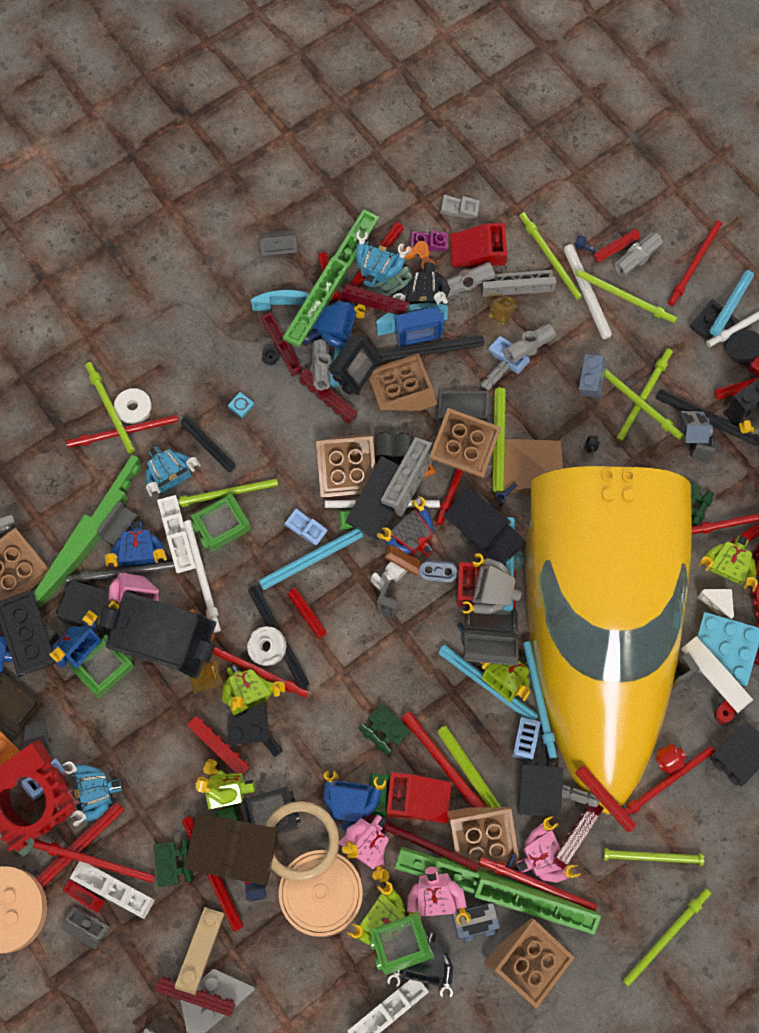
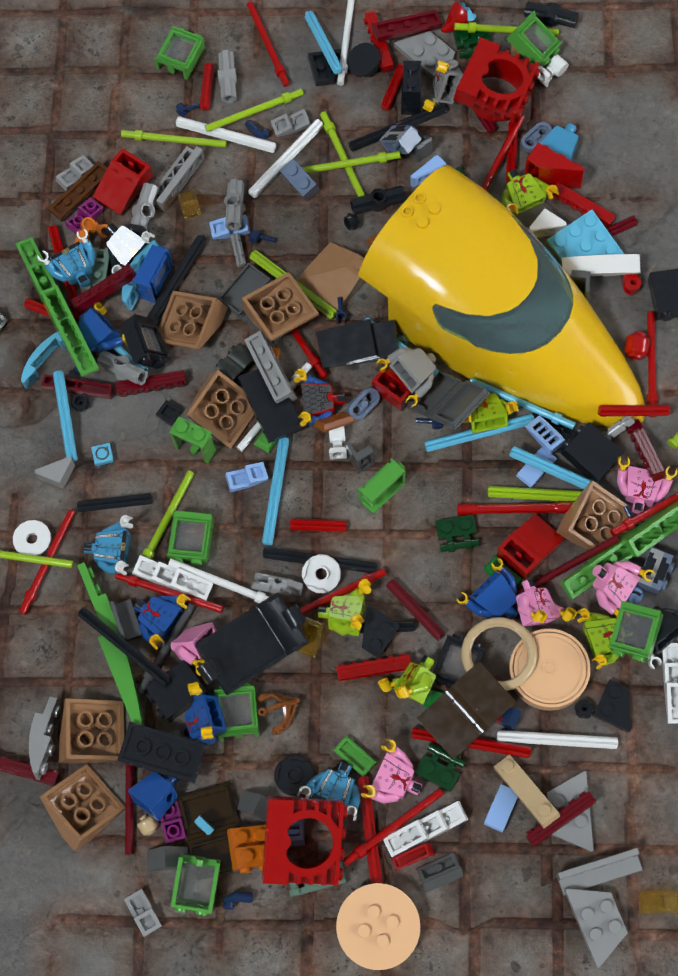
camera: 45 degrees left, 0 degrees up
(84, 748) = (292, 774): none -> black tile
(90, 540) = (124, 646): none -> black axle
(133, 786) = (354, 756): none -> bright green tile
(135, 830) = (393, 777): none -> bright pink torso
(136, 699) = (289, 708): none -> dark orange helmet
(154, 509) = (135, 581): none -> red bar
(171, 939) = (501, 808): none -> light blue slope
(199, 383) = (57, 472): none -> light grey slope
(231, 618) = (276, 584): none -> light grey hinge
(248, 353) = (64, 413): none -> medium azure axle
(266, 944) = (557, 739): none -> white axle
(293, 744) = (415, 609): none -> dark red axle
(301, 462) = (194, 434): none -> bright green window
(314, 428) = (168, 412): none -> black tile
(314, 948) = (589, 709): none -> black plate
(330, 973) = (614, 706): none -> black wing
(376, 639) = (382, 486): none -> bright green window
(439, 922) = (634, 598): none -> light blue hinge
(444, 221) = (78, 192): none -> reddish brown plate
(492, 753) = (531, 475): none -> light blue slope
(499, 767) = (549, 467): none -> medium azure axle
(517, 379) = (256, 235): none -> dark blue hand
(607, 352) = (287, 156): none -> white axle
(609, 308) = (251, 126): none -> dark blue arm
(617, 444) = (368, 202): none -> black piece
(629, 203) = (180, 51): none -> bright green window
(637, 332) = (291, 124): none -> light grey slope
(692, 472) = (428, 168): none -> light blue slope

